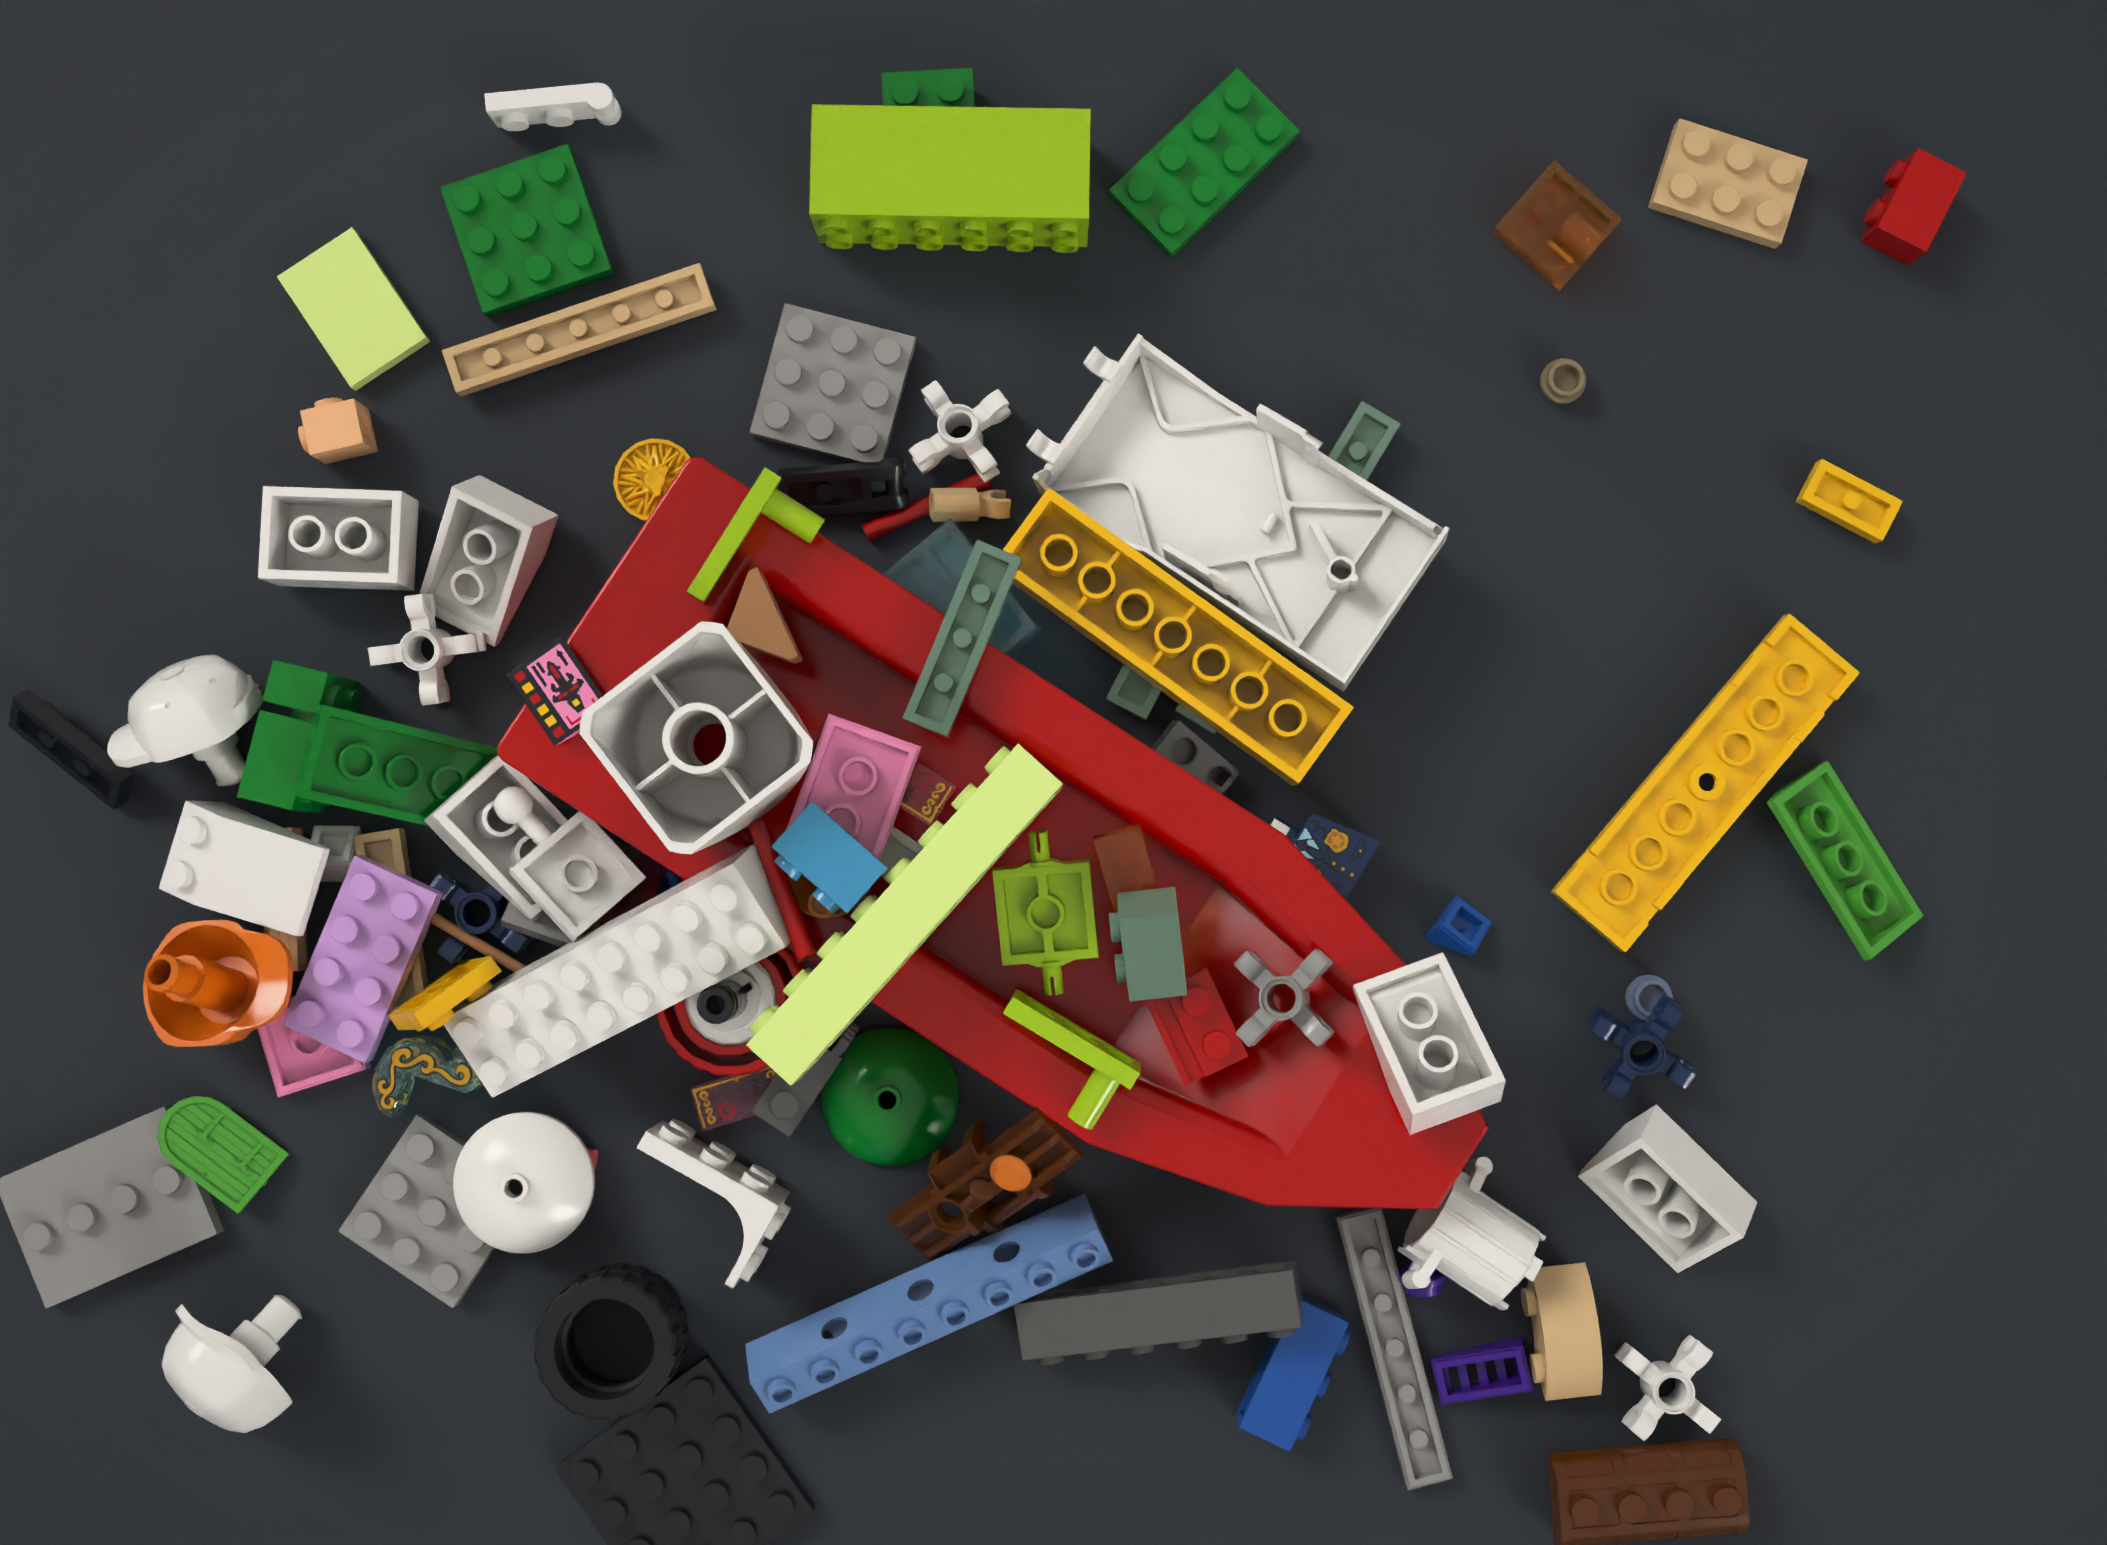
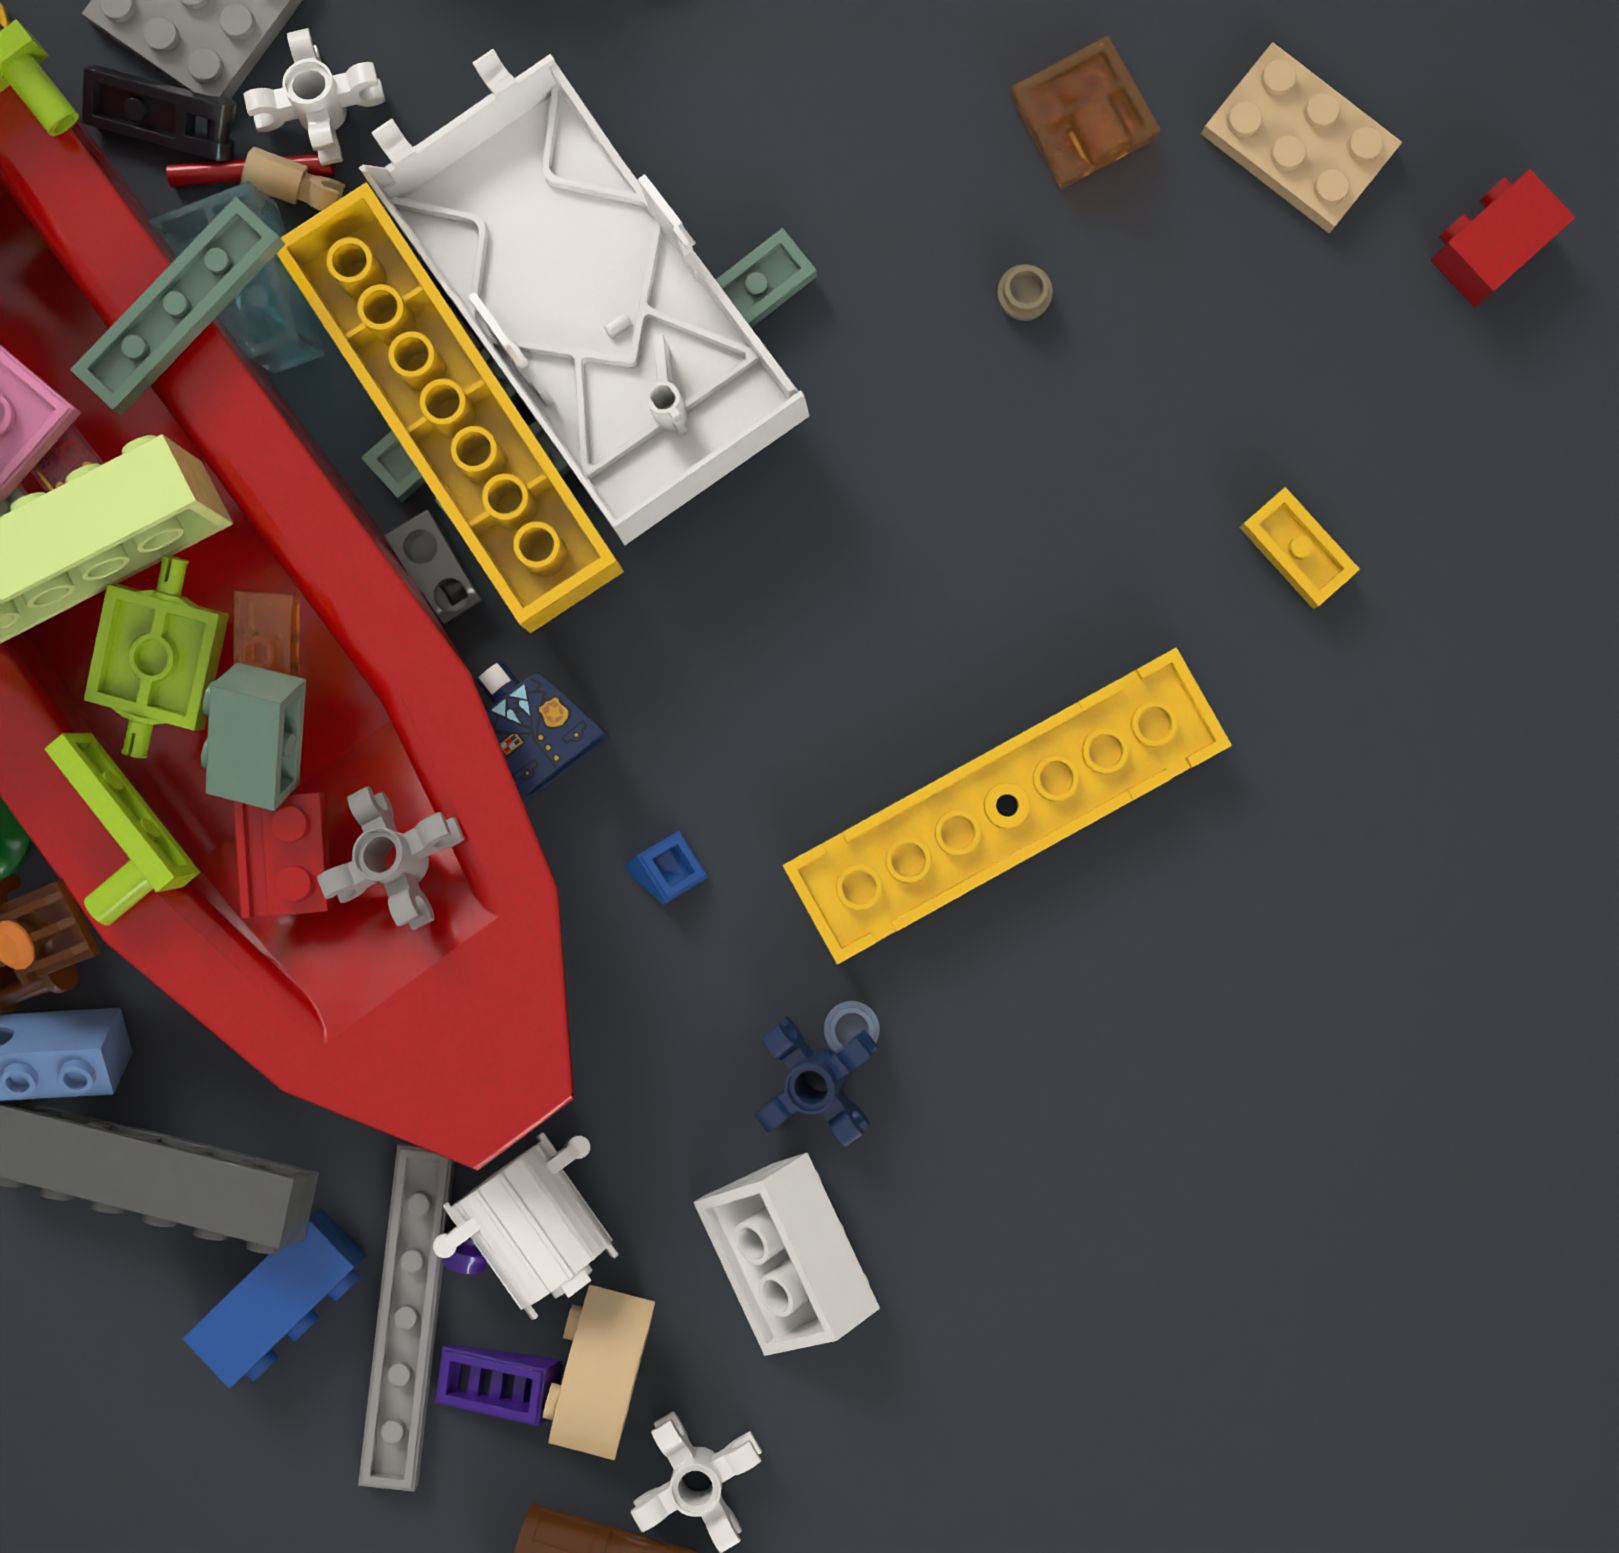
camera: 30 degrees right, 0 degrees up
(1429, 1043) = (529, 972): white slope -> none
(1844, 859) = (1135, 955): bright green slope -> none

